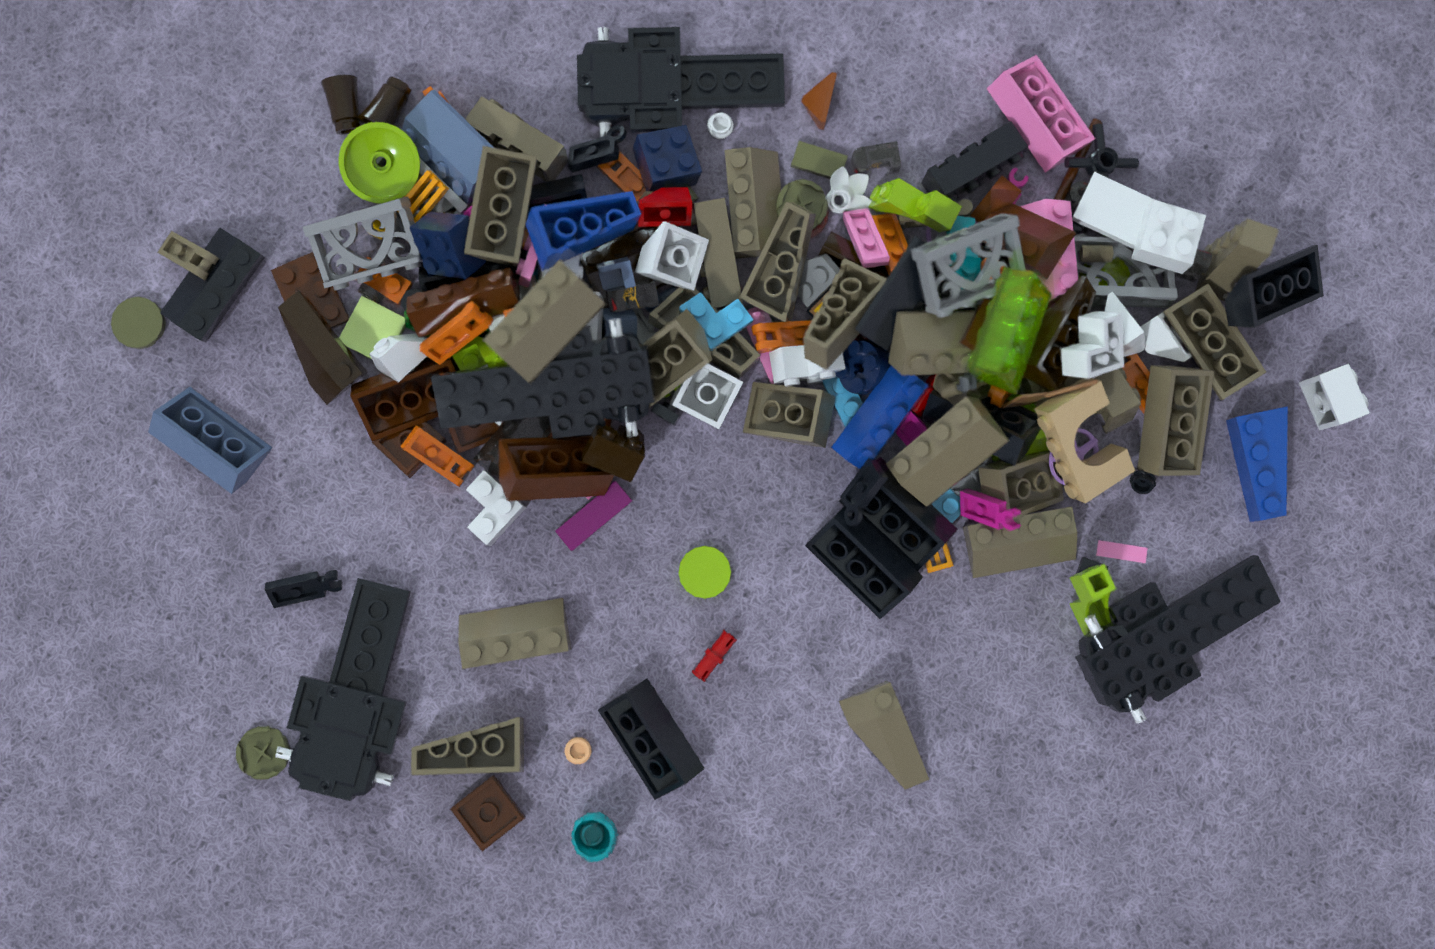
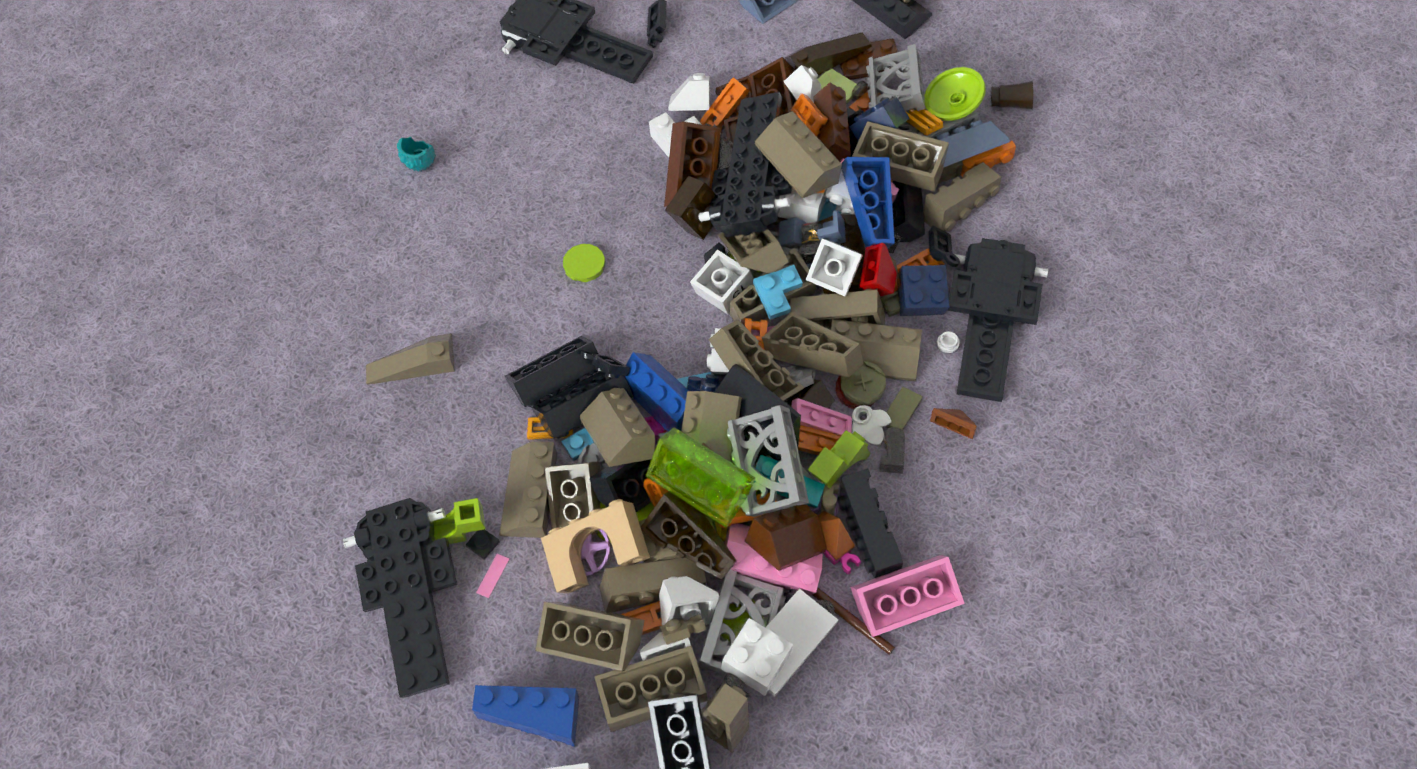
camera: 110 degrees right, 25 degrees down
(387, 103) = (1006, 120): dark brown plant -> none
(428, 504) = (692, 94): none -> white slope
(483, 750) = (503, 98): dark tan wedge -> none
(488, 813) = (460, 100): reddish brown plate -> none
(513, 633) = (579, 134): dark tan slope -> none
(578, 750) = (482, 160): light nougat tile -> none
(593, 516) = (650, 199): magenta tile -> none
(651, 739) = (472, 204): black slope -> none
(714, 655) = (518, 255): red pin -> none
(789, 414) = (686, 343): dark tan slope -> none
(987, 510) = (560, 457): dark pink plate -> none
(1029, 399) = (640, 524): medium nougat piece -> none
(1098, 346) = (665, 560): white brick -> none
(1101, 154) = (860, 639): black bar -> none
(1106, 253) = (763, 604): dark tan piece -> none
(1142, 482) = (546, 597): black plate -> none
(1154, 326) = (677, 629): none -> dark tan plate

